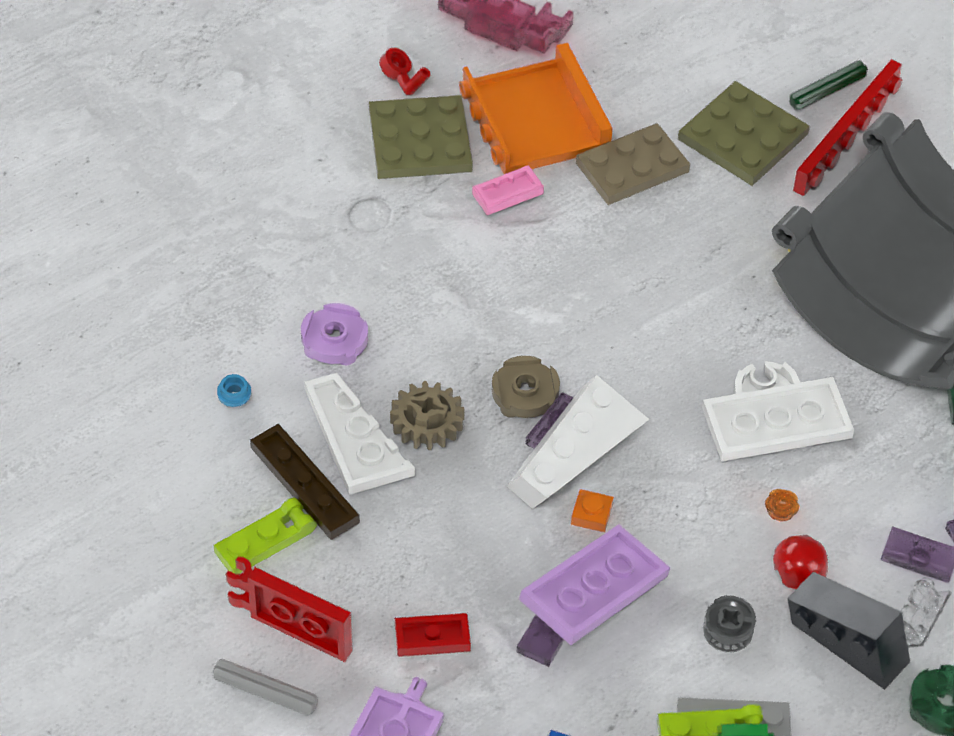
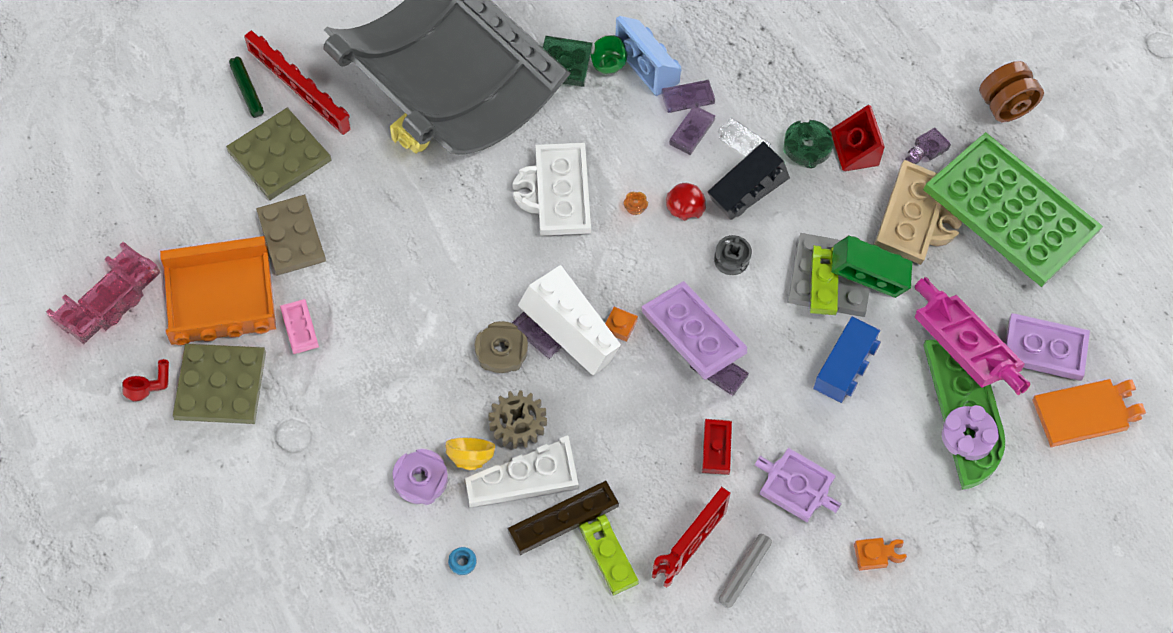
camera: 80 degrees left, 10 degrees up
(372, 369) = (469, 452): none -> yellow piece

